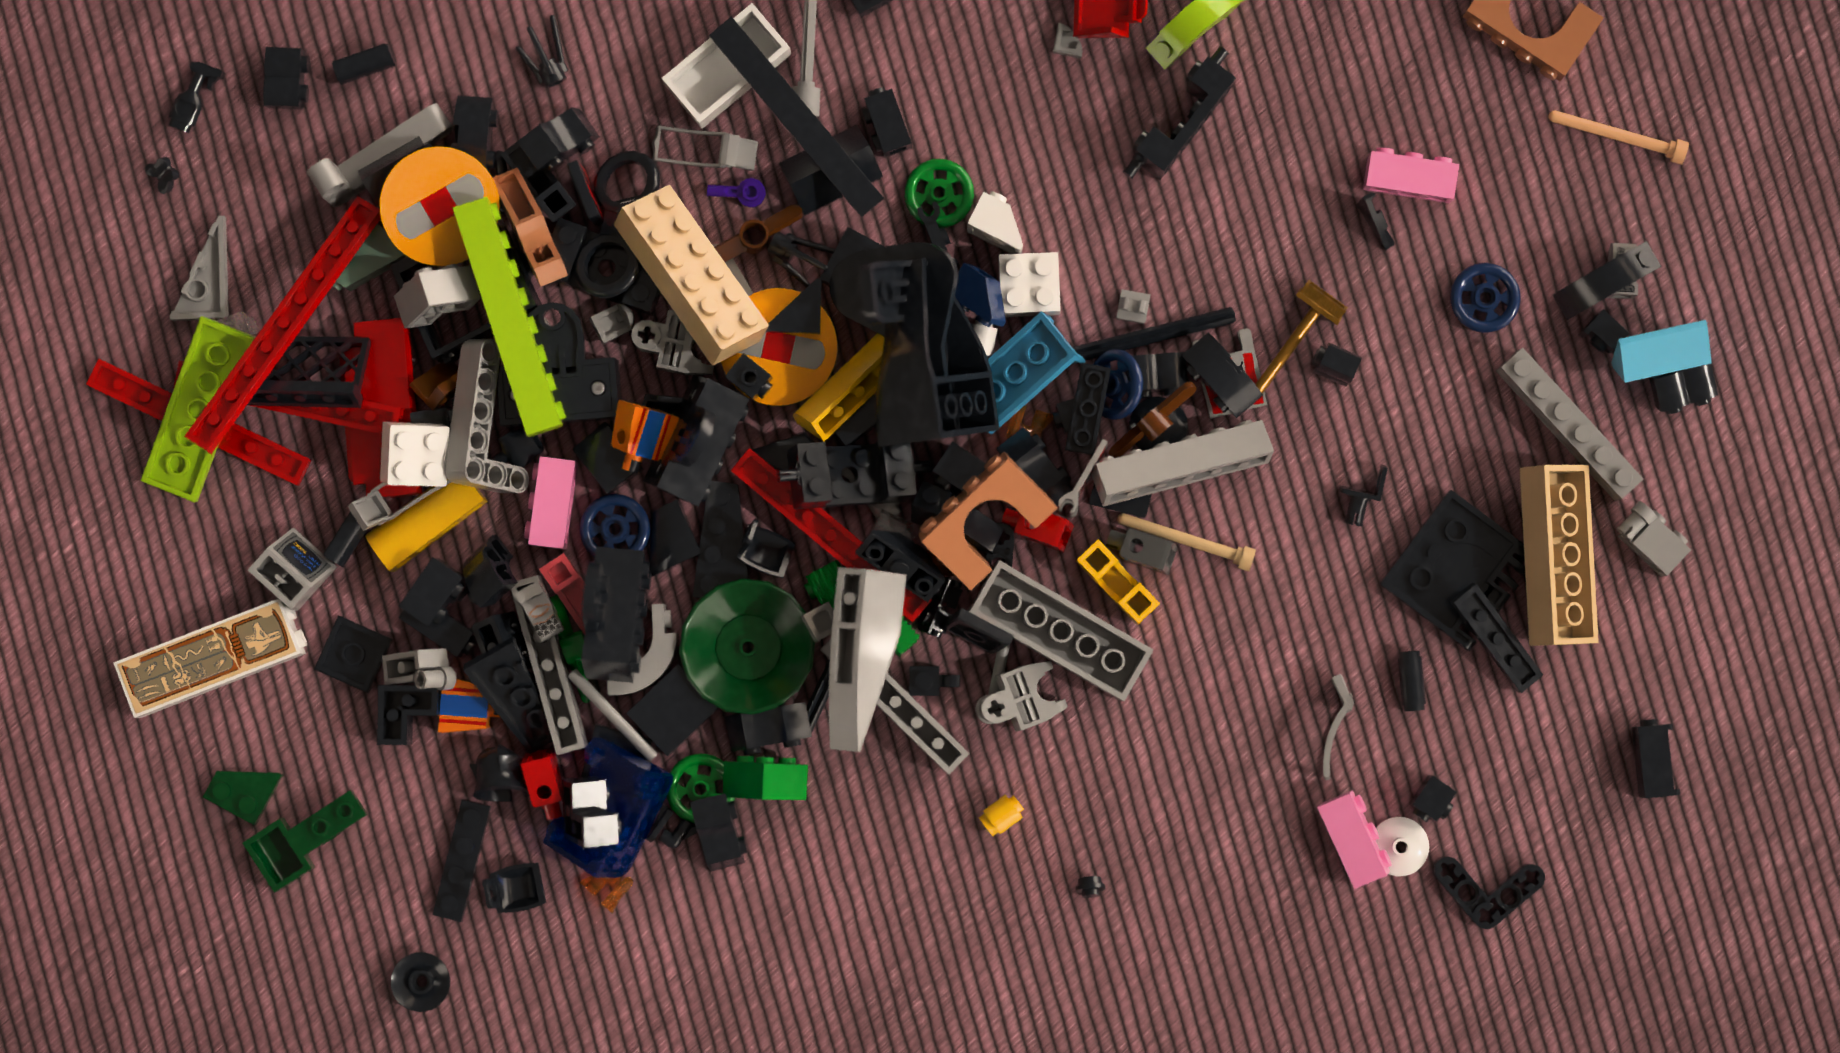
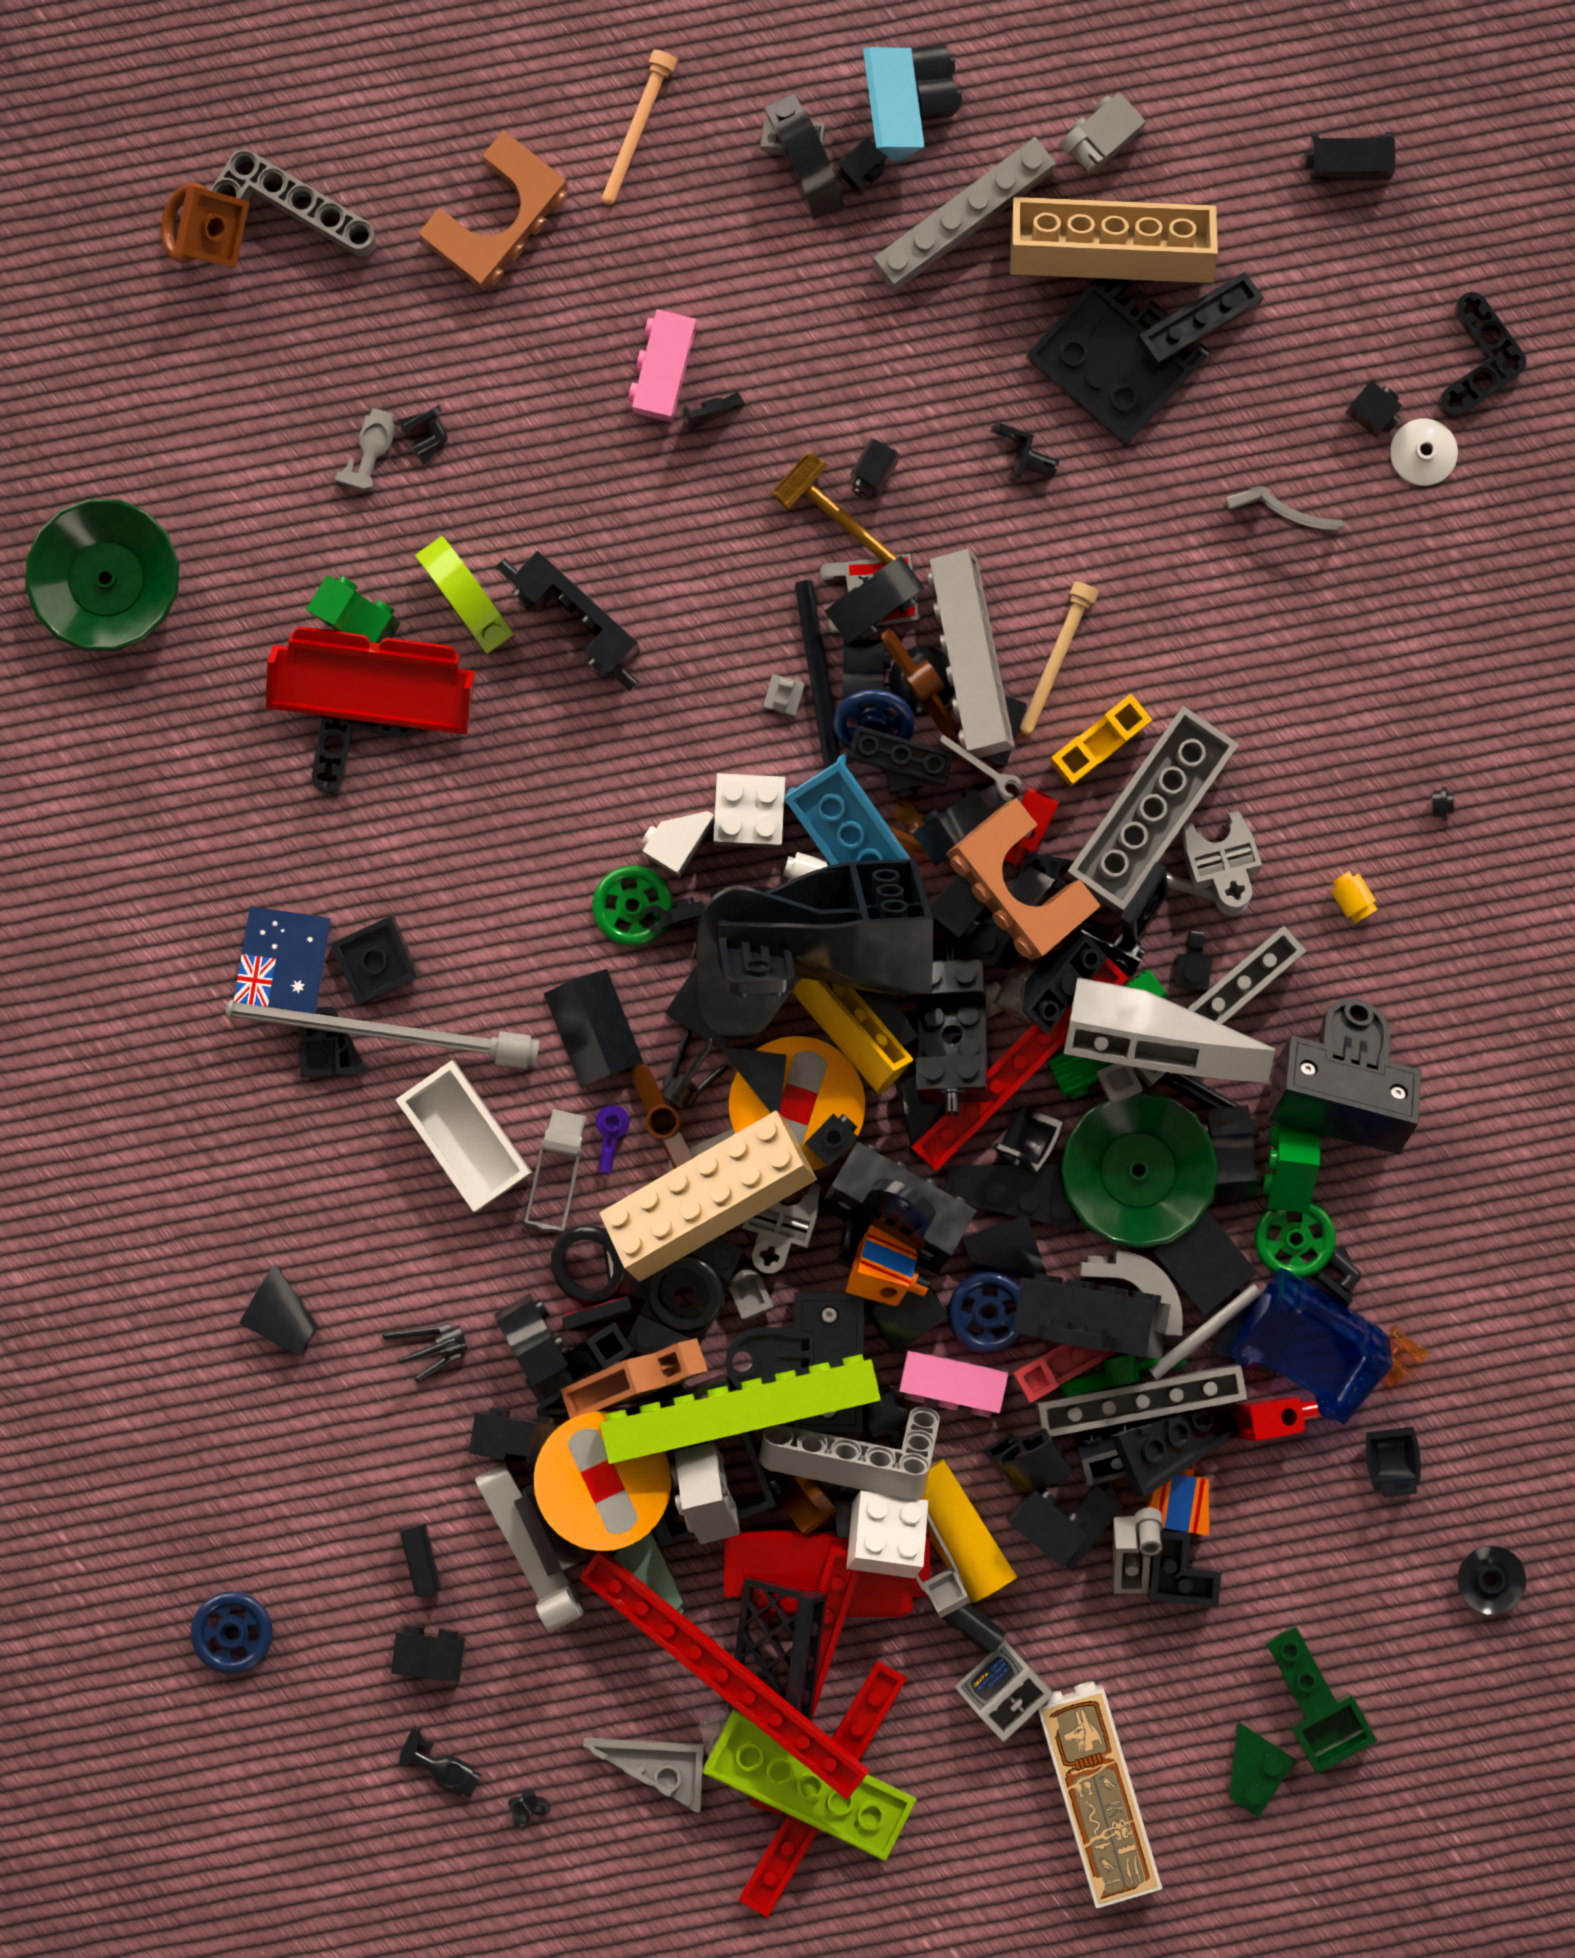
camera: 90 degrees left, 0 degrees up
(353, 654) = (1106, 1628): black tile -> none
(462, 860) = (1355, 1521): black plate -> none
(497, 773) = (1261, 1469): black helmet -> none
(540, 610) = (1081, 1403): light grey leg -> none
(586, 812) = (1319, 1370): brick -> none
(718, 832) = (1348, 1221): black brick -> none
(796, 117) = (534, 1059): black tile -> none
(838, 819) = (1347, 1082): none -> black brick
(887, 121) = (545, 957): black brick -> none
(981, 295) = (760, 864): dark blue slope -> none
(1065, 43) = (472, 744): light grey tile -> none
(1156, 552) = (1071, 693): dark grey torso -> none
(1354, 839) = (1413, 500): bright pink brick -> none
(1411, 680) = (1239, 419): black piece -> none
(1465, 283) = (812, 267): dark blue plate -> none

